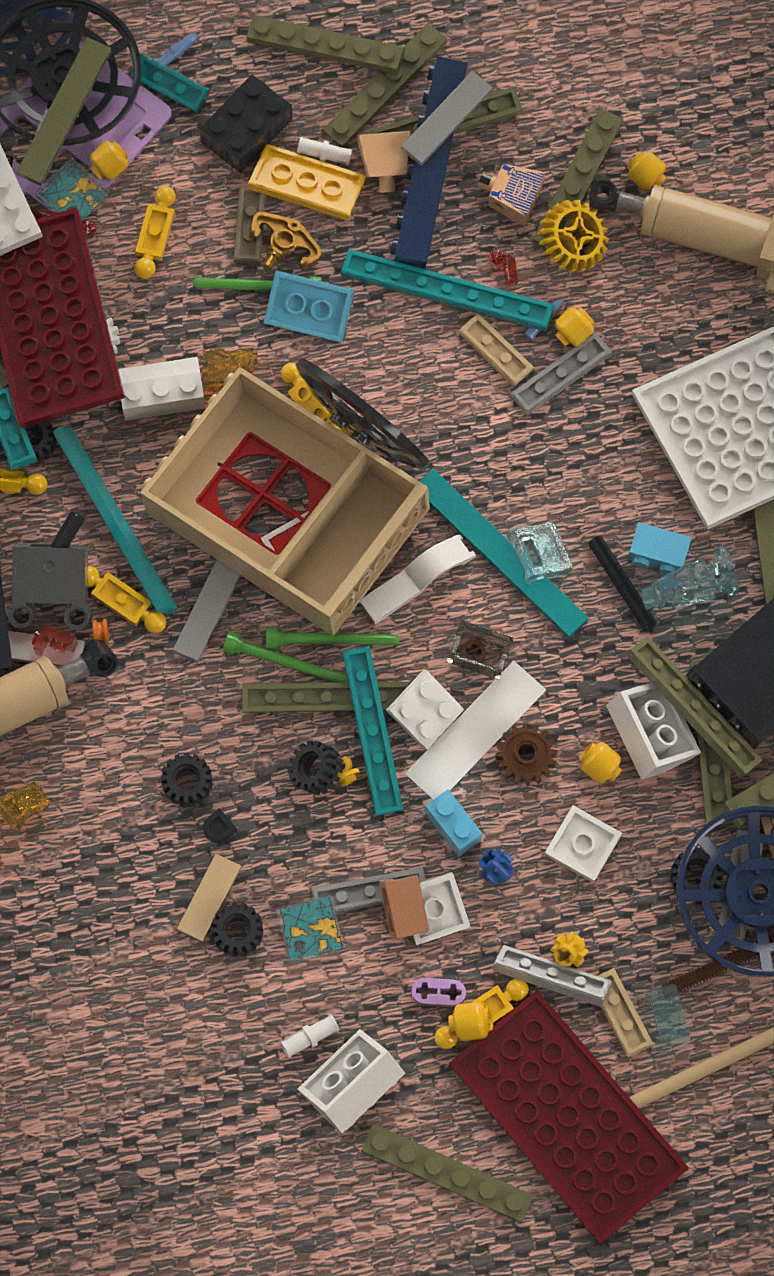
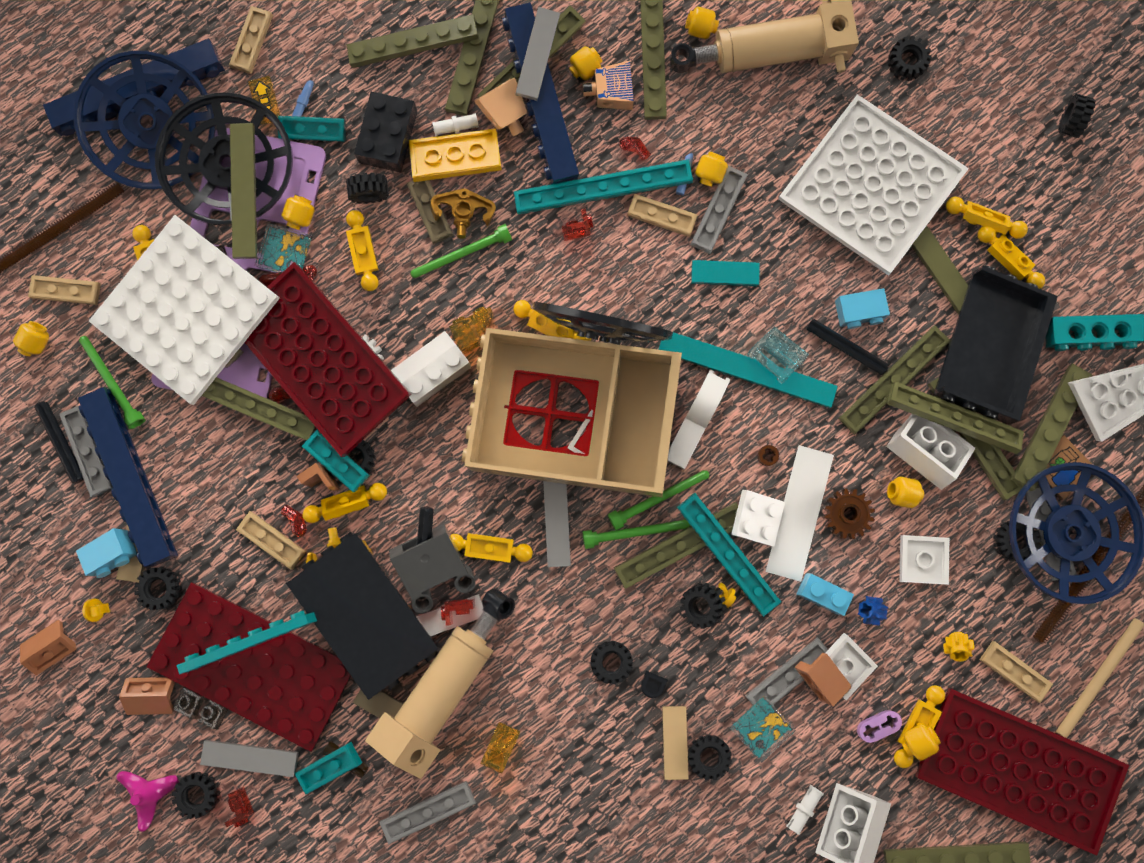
camera: 25 degrees left, 10 degrees up
(100, 630) = (486, 580): orange bush -> none
(115, 520) = (451, 489): teal tile -> none
(140, 23) = (263, 92): none -> clear yellow tile
(194, 170) = (367, 188): none -> black tyre
(309, 306) = (508, 251): medium azure tile -> none
(394, 320) = (576, 229): none -> clear red bracket
(486, 637) = (790, 437): clear smoke tile -> none
(497, 152) = (585, 63): none -> yellow head
(531, 442) = (725, 273): none -> teal tile
(552, 975) = (957, 673): light grey tile -> none
(561, 243) = (675, 99): yellow gear -> none
(668, 639) = (901, 371): none -> olive tile
(668, 1015) = (1053, 657): clear light blue tile -> none
(692, 583) = (903, 321): clear light blue piece -> none

